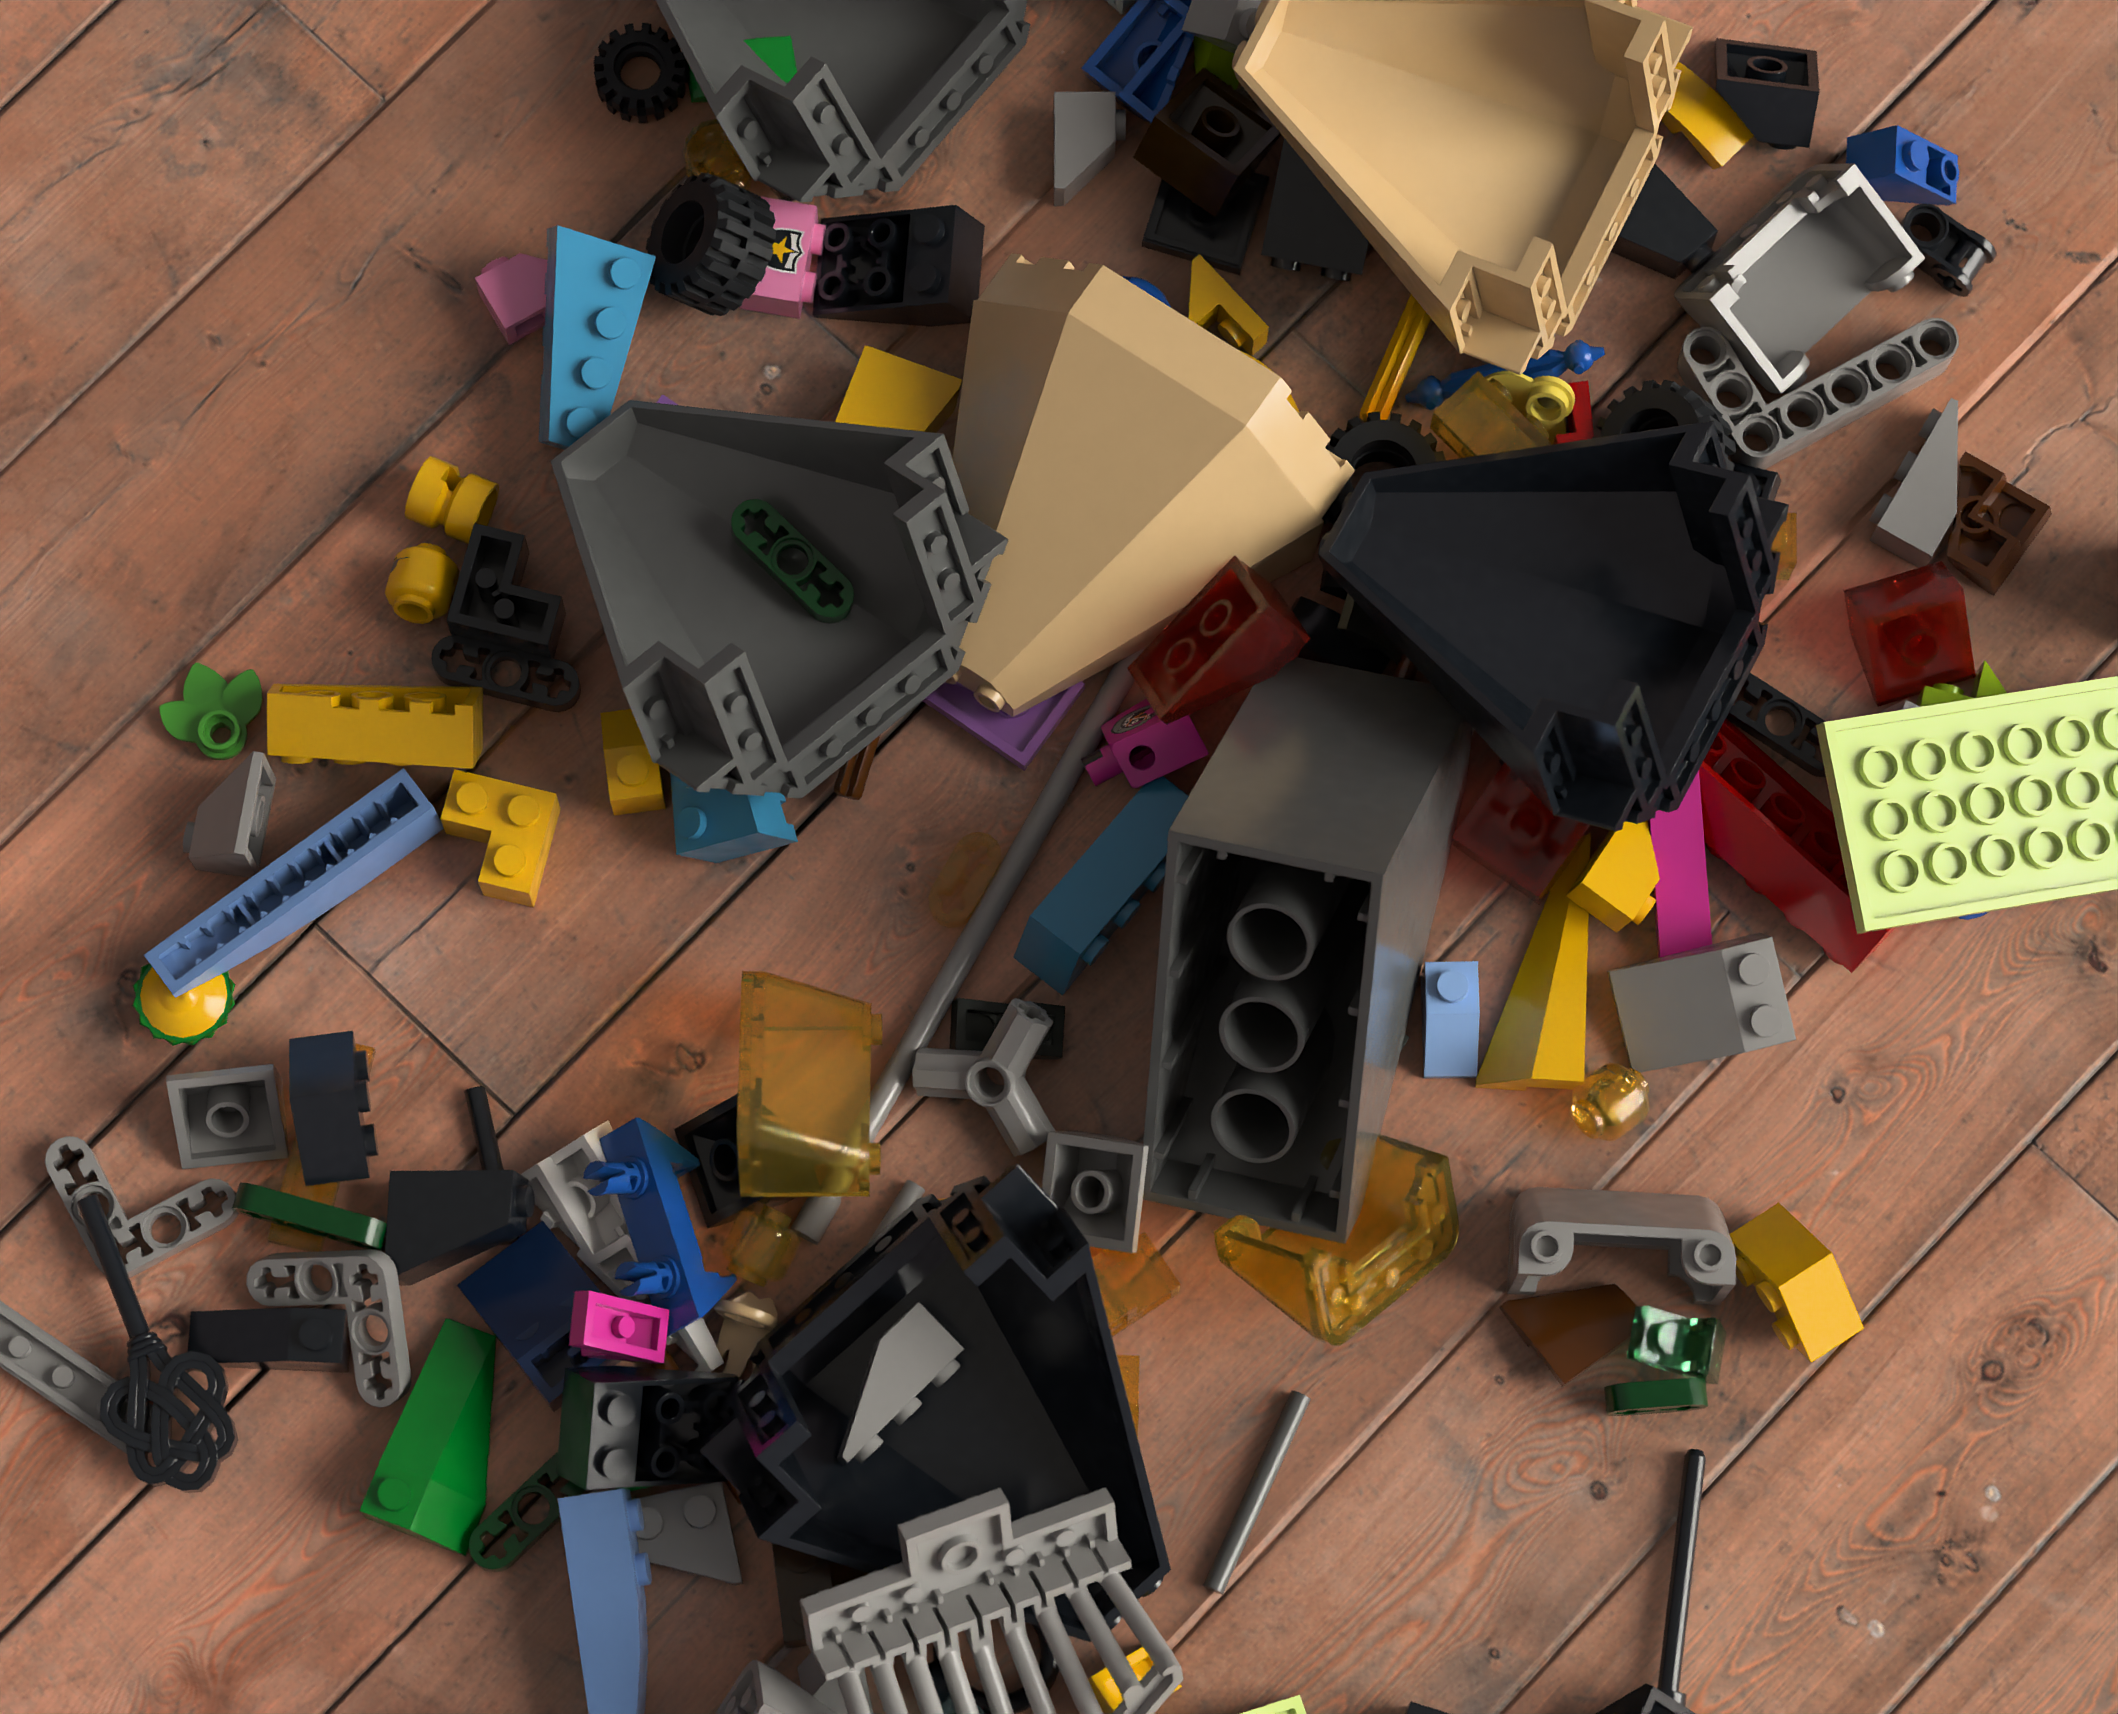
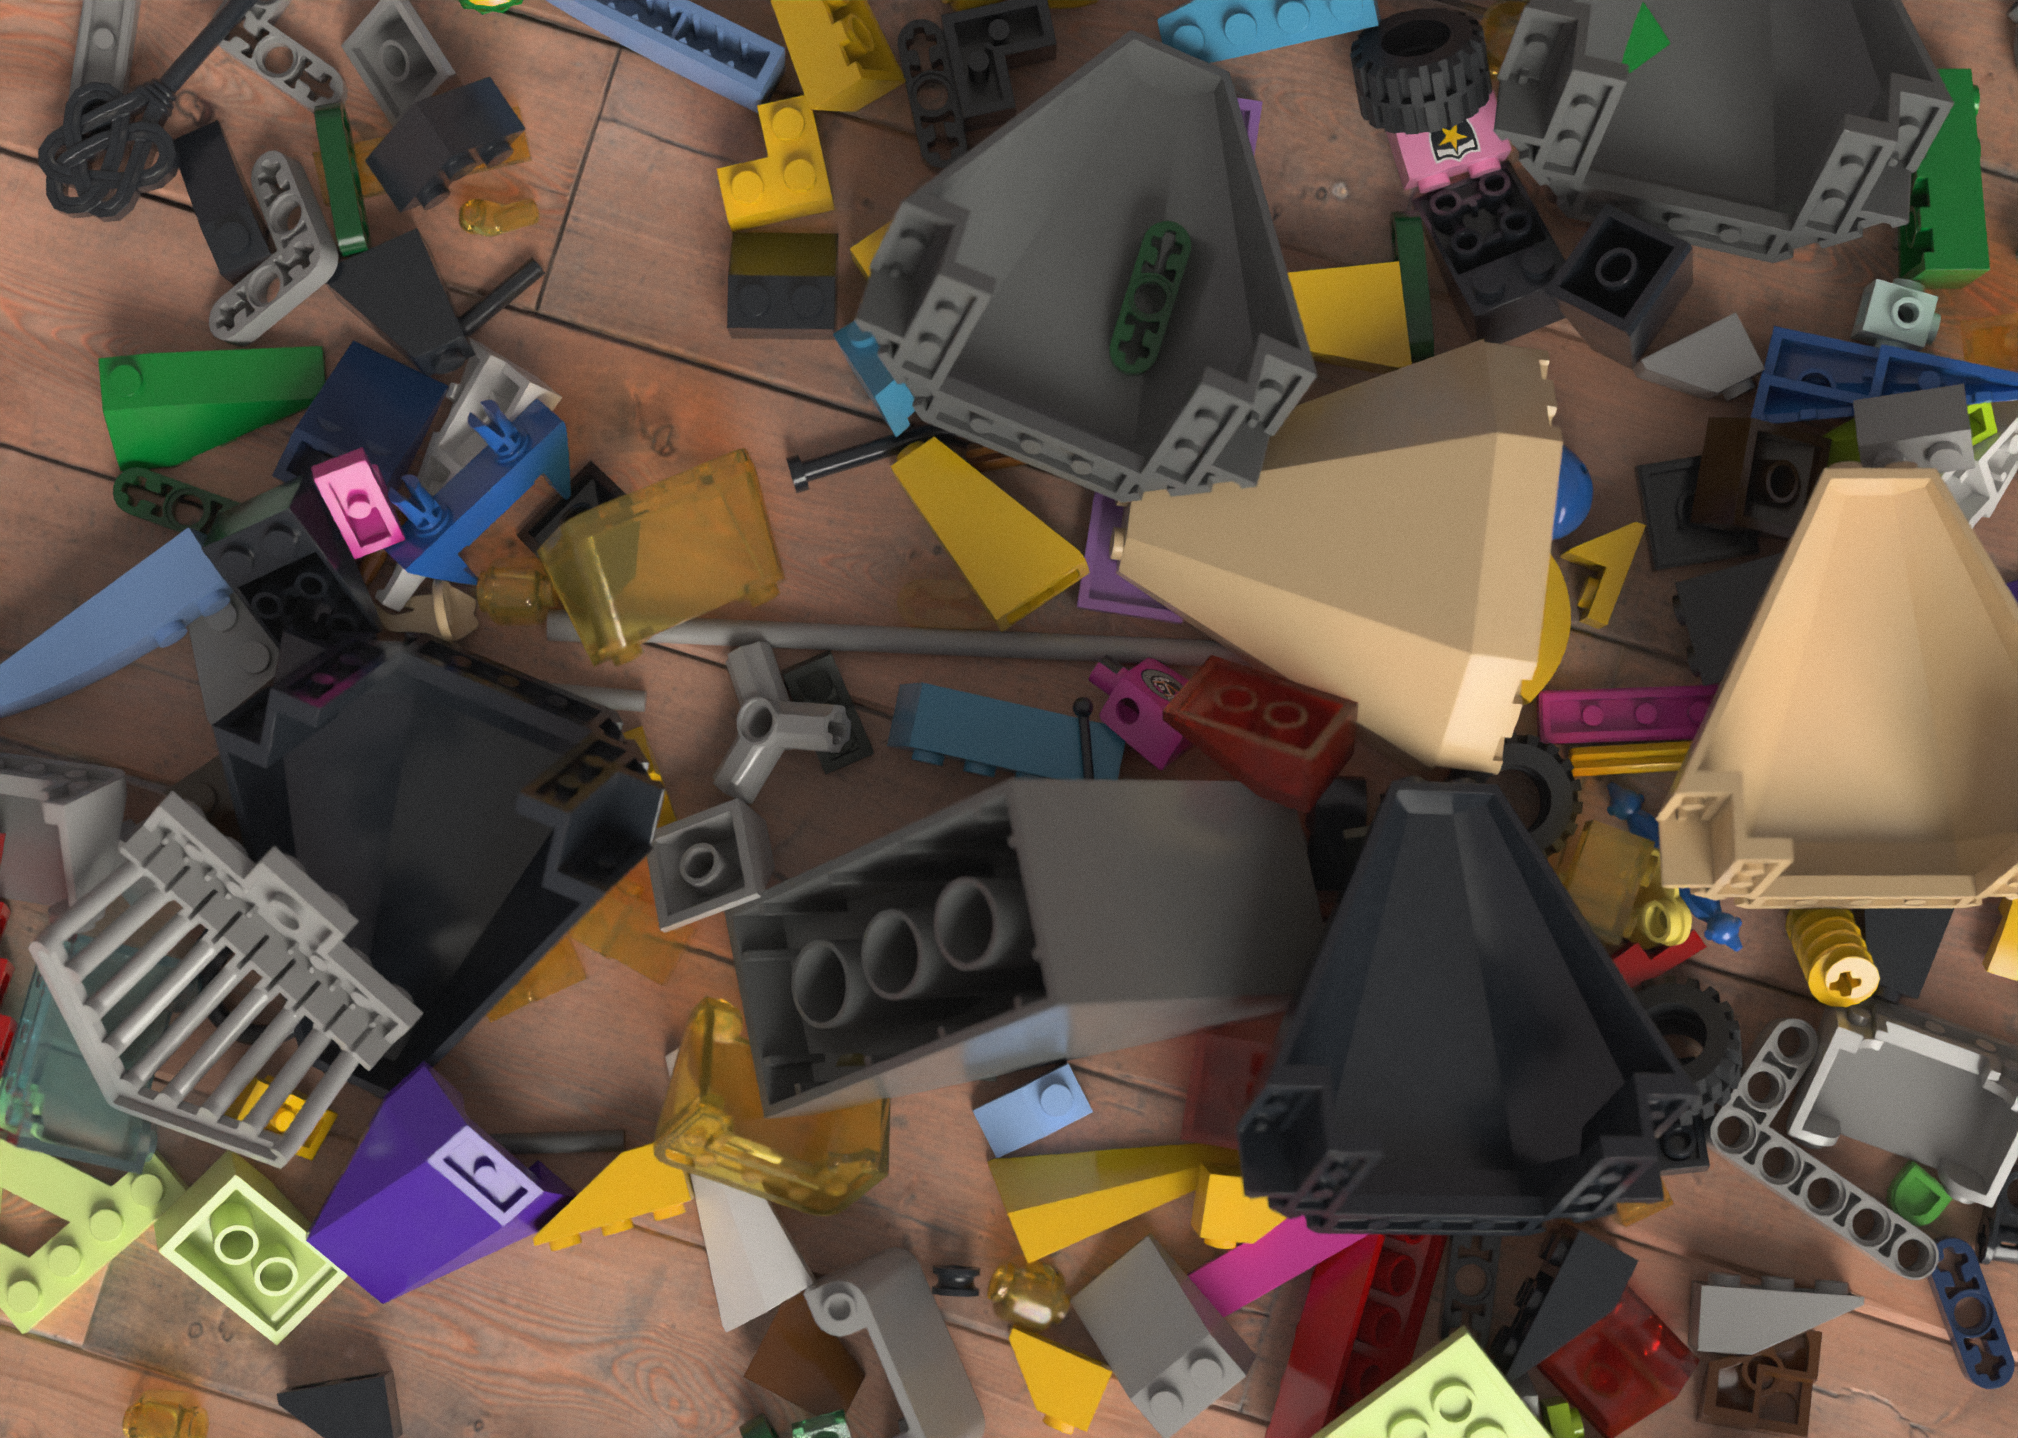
camera: 65 degrees right, 10 degrees up
(414, 1104) = (494, 218): none -> clear yellow arm
(608, 881) = (783, 286): none -> black slope
(782, 946) = (859, 454): none -> black bar
(851, 334) = (1409, 250): none -> dark green beam
(899, 1367) = (458, 773): light grey slope -> none
(921, 810) = (990, 537): none -> yellow slope
(983, 168) = (1622, 284): none -> black slope
(1119, 797) = (1083, 709): none -> black hinge
(1264, 1581) = (428, 1193): none -> dark purple wedge
(1344, 1405) = (625, 1189): none -> yellow slope
(1356, 346) = (1622, 714): none -> dark pink tile
(1440, 1327) = (747, 1249): none -> white wedge
(1568, 1160) = (956, 1280): none -> black bush
(1645, 280) = (1832, 955): none -> yellow piece
(1698, 1112) = (1060, 1379): none -> yellow slope
(1829, 636) = (1569, 1294): none -> black slope
(1884, 316) = (1916, 1195): none -> bright green tile
(2042, 343) = (1969, 1354): none -> dark blue beam

